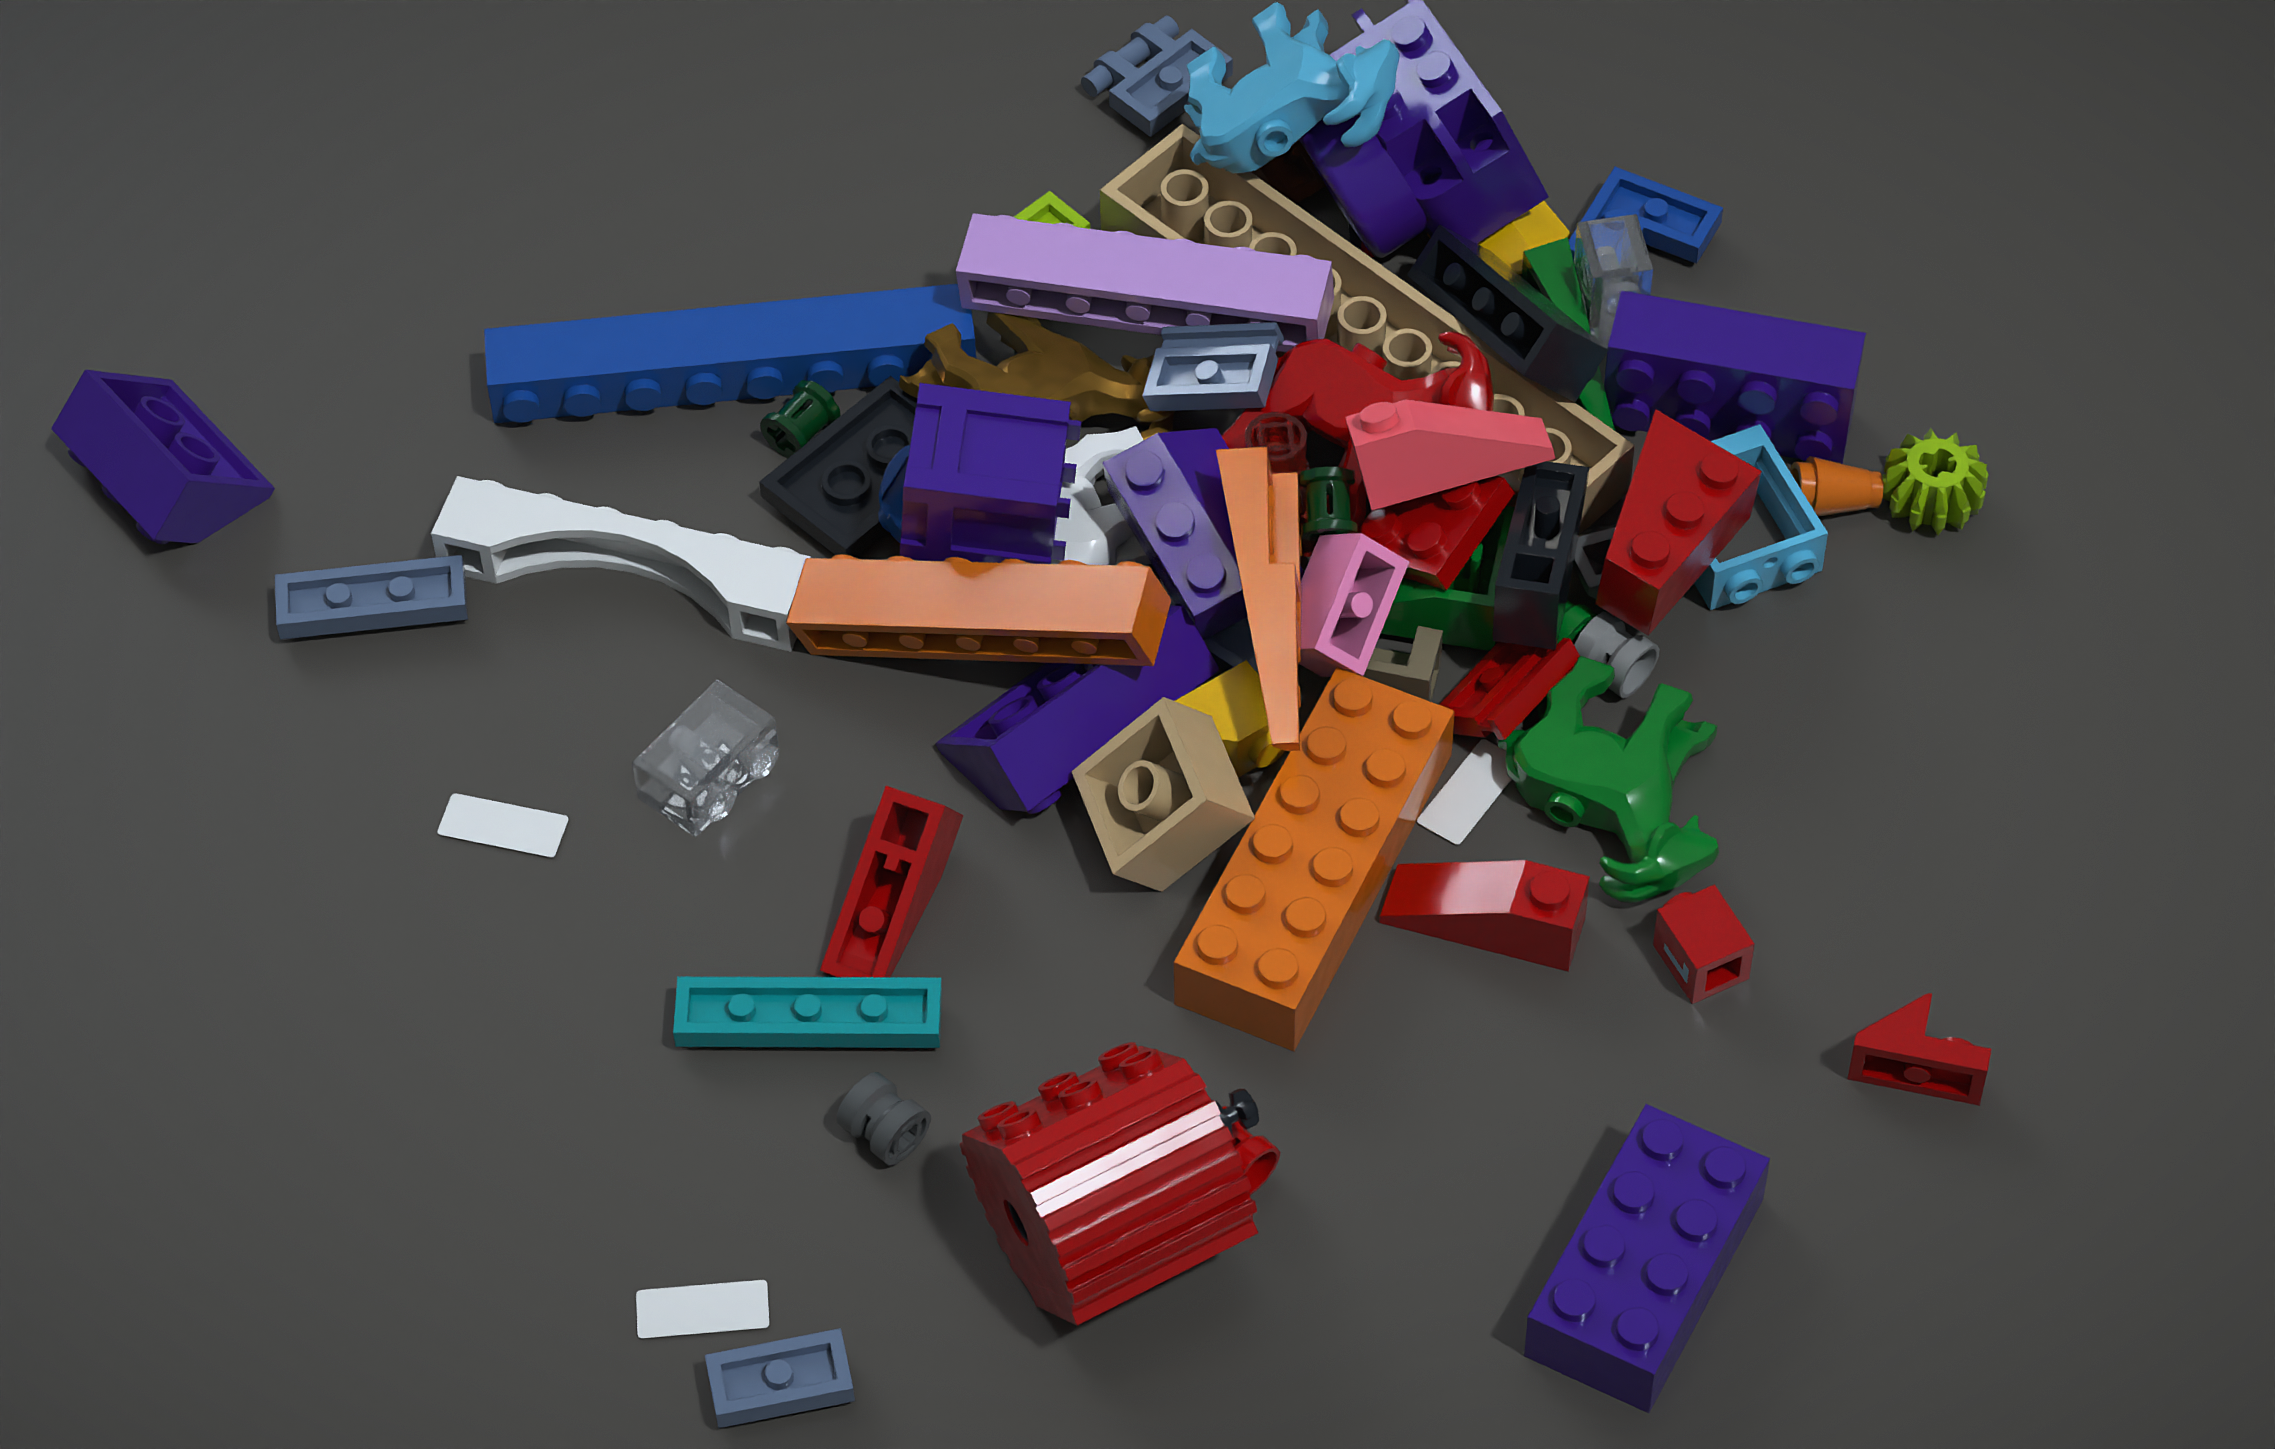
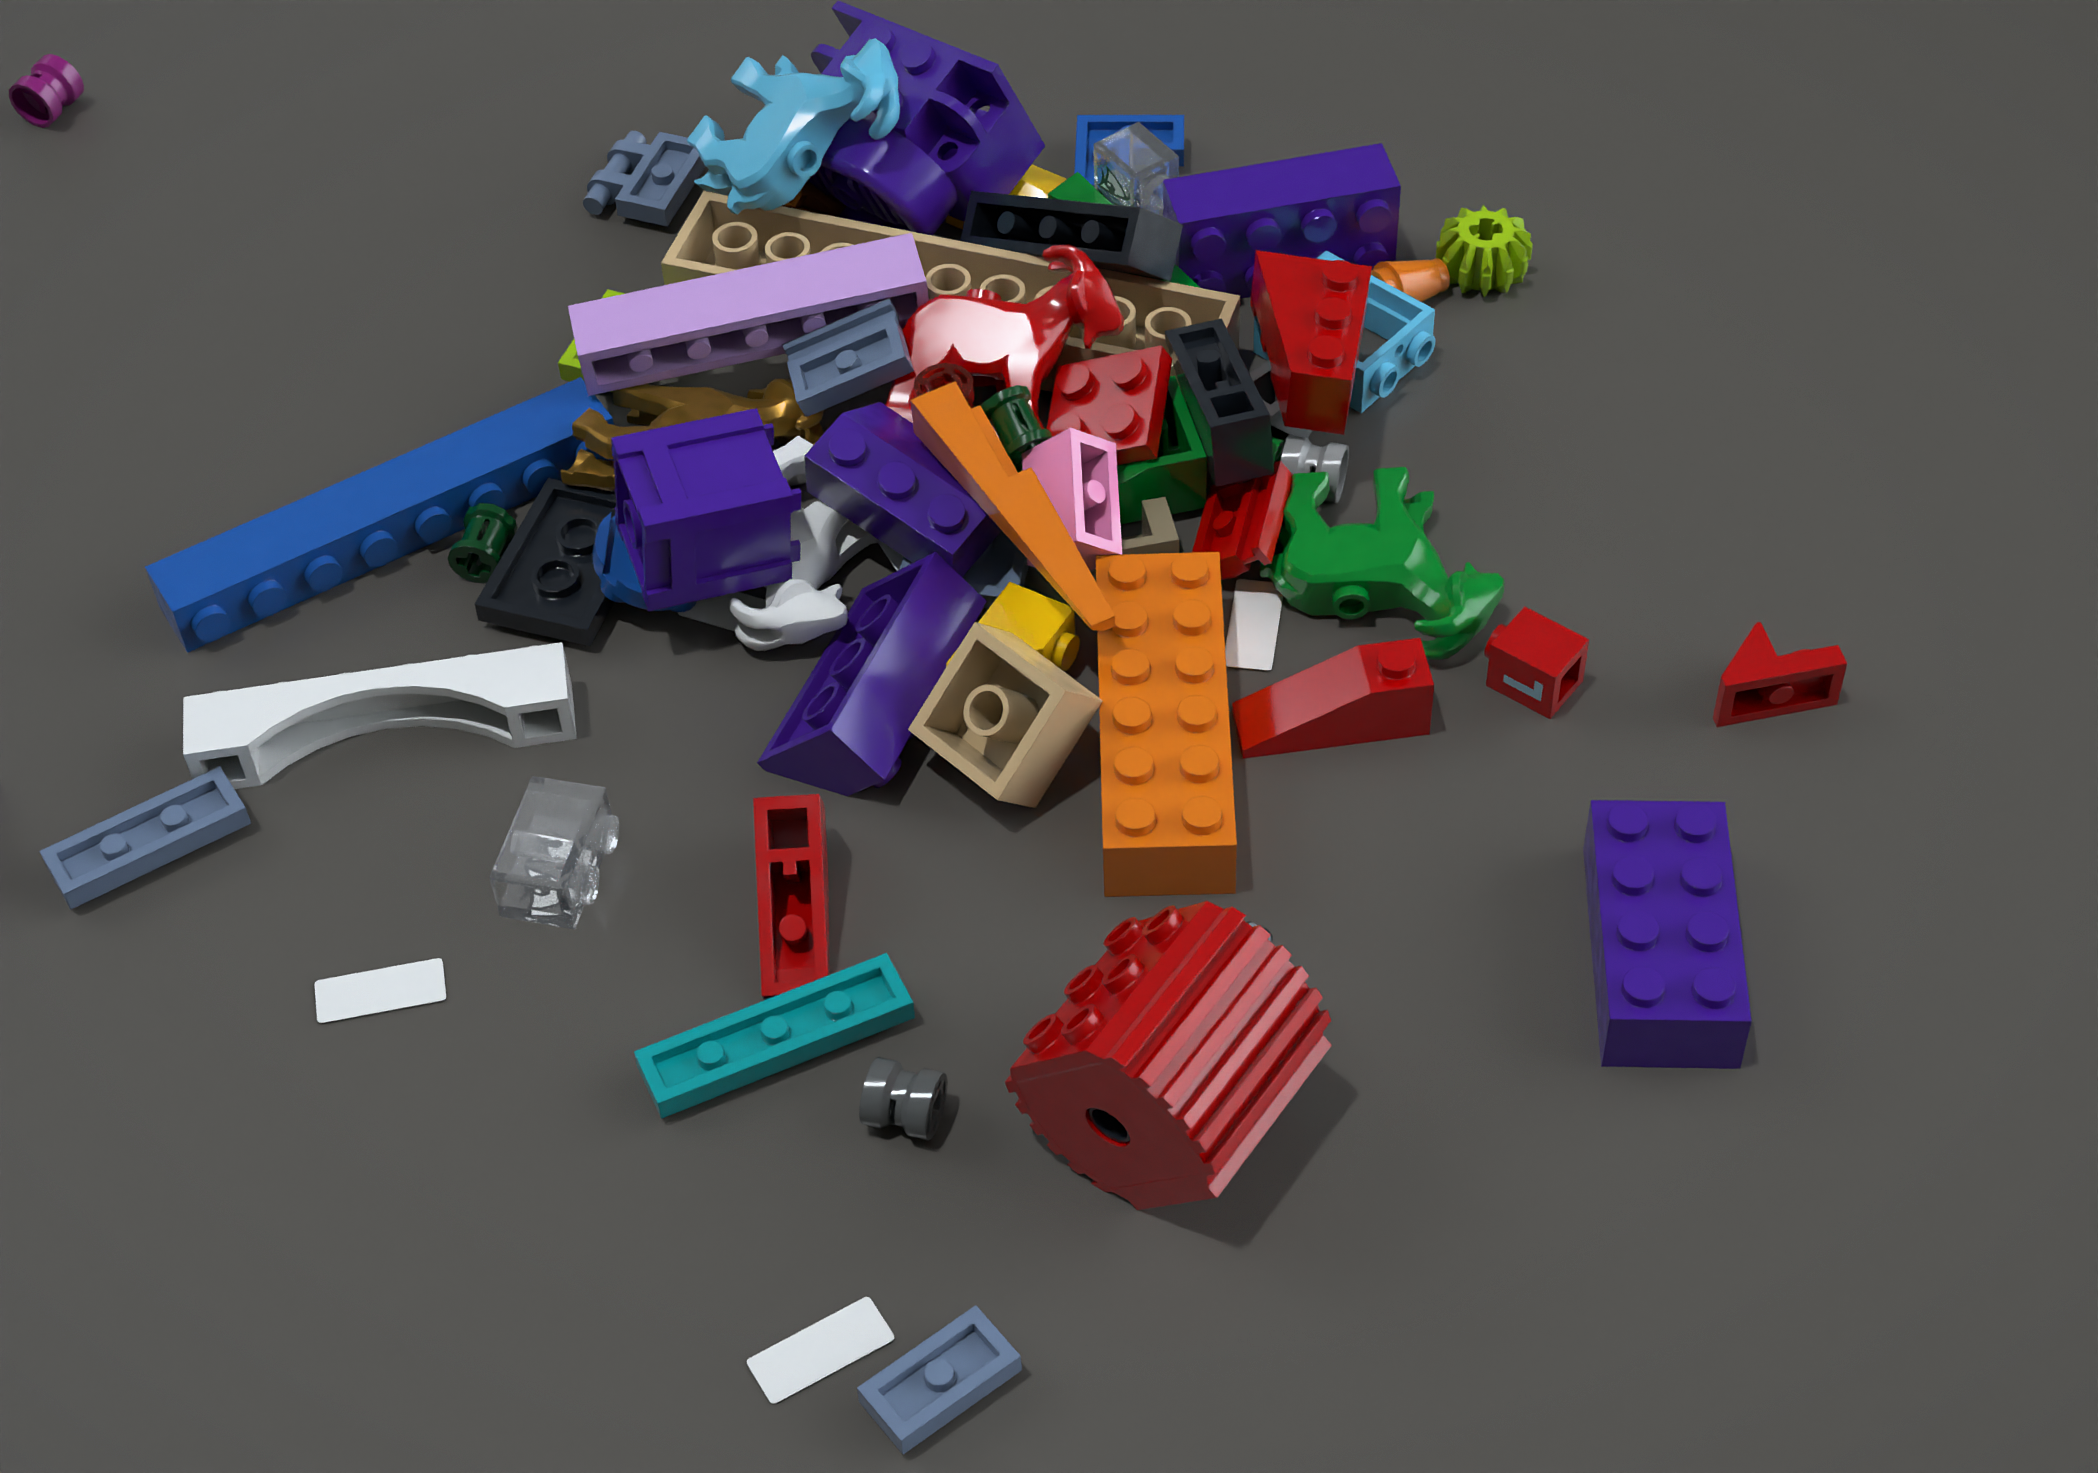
camera: 25 degrees left, 5 degrees down
(980, 610) = (751, 624): orange brick -> none
(1432, 447) = (1083, 344): coral slope -> none

